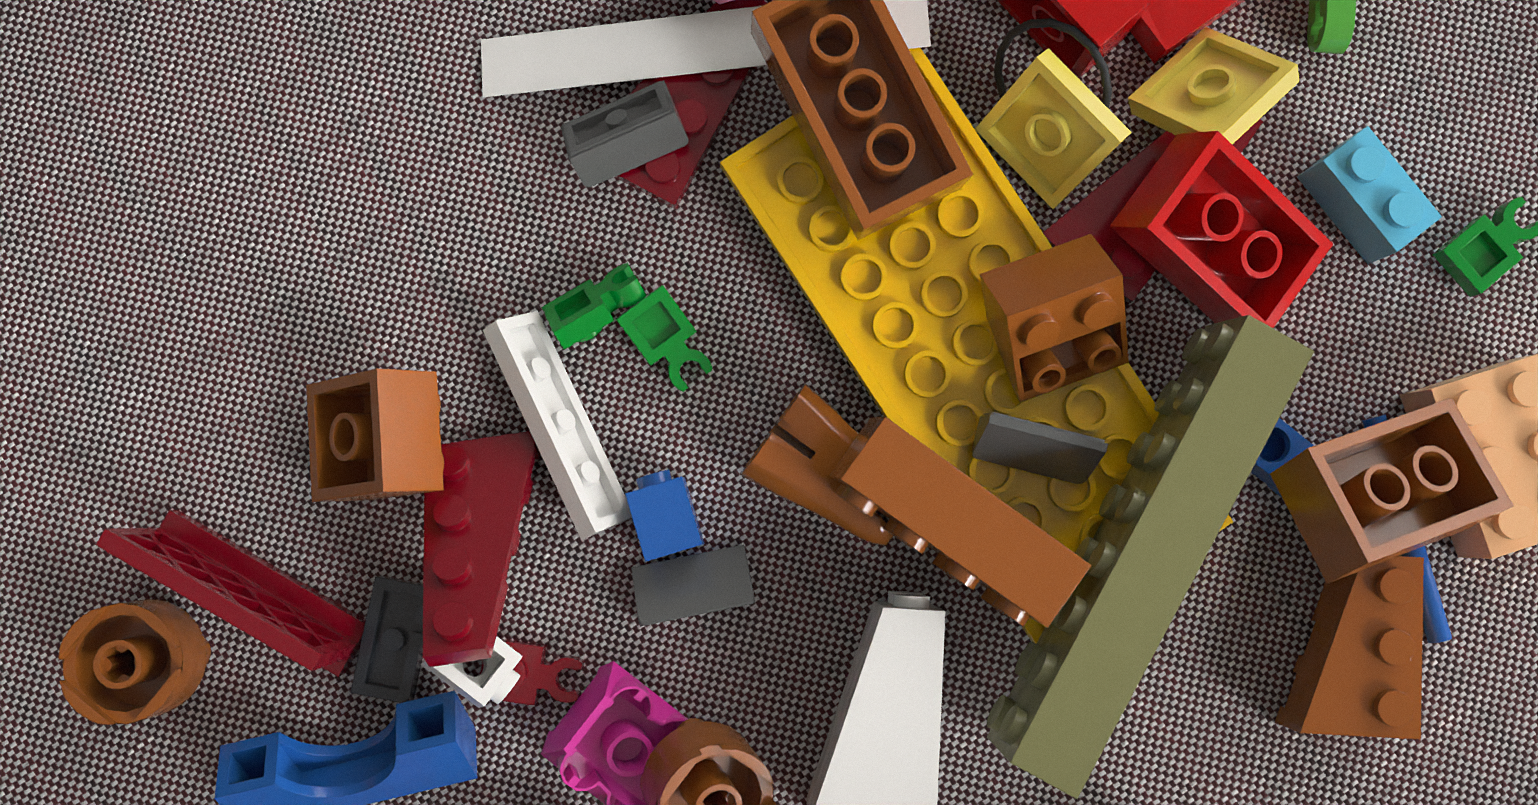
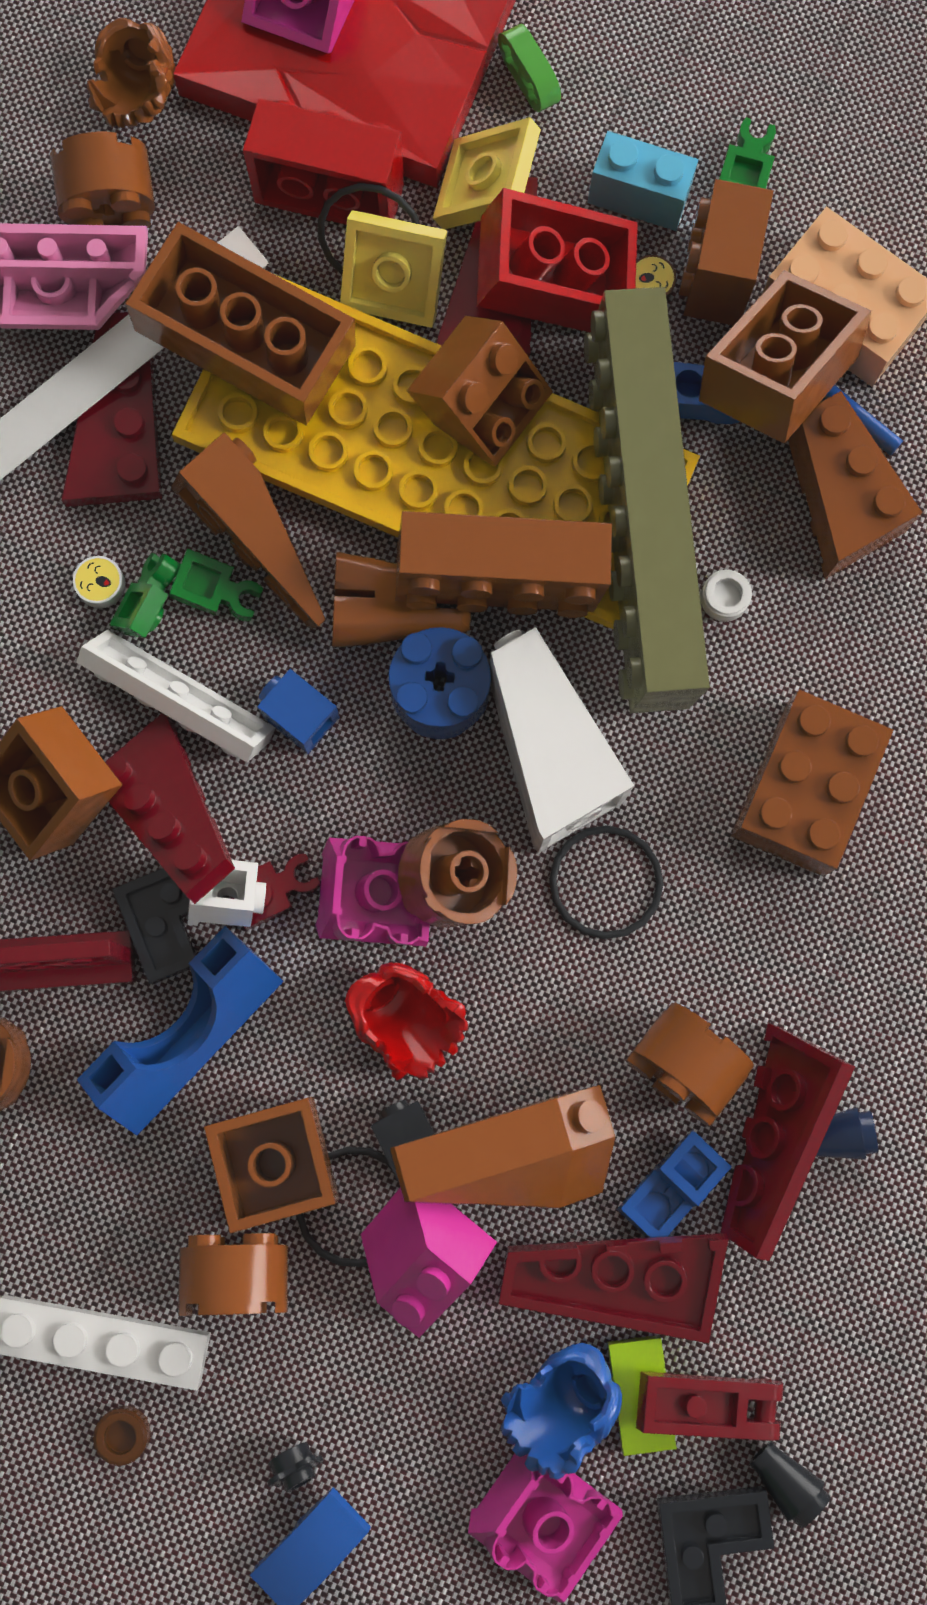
camera: 35 degrees left, 5 degrees down
(559, 257) = (99, 582): none -> light yellow tile
(624, 134) = (90, 462): dark grey slope -> none
(692, 585) = (351, 748): dark grey slope -> none
(738, 274) = (232, 498): none -> dark orange wedge
(824, 618) = (415, 669): none -> blue brick
(1037, 448) = (528, 485): dark grey slope -> none
(1167, 678) = (726, 595): none -> white tile
(1313, 306) = (655, 272): none -> light yellow tile
(1405, 332) = (725, 251): none -> dark orange brick

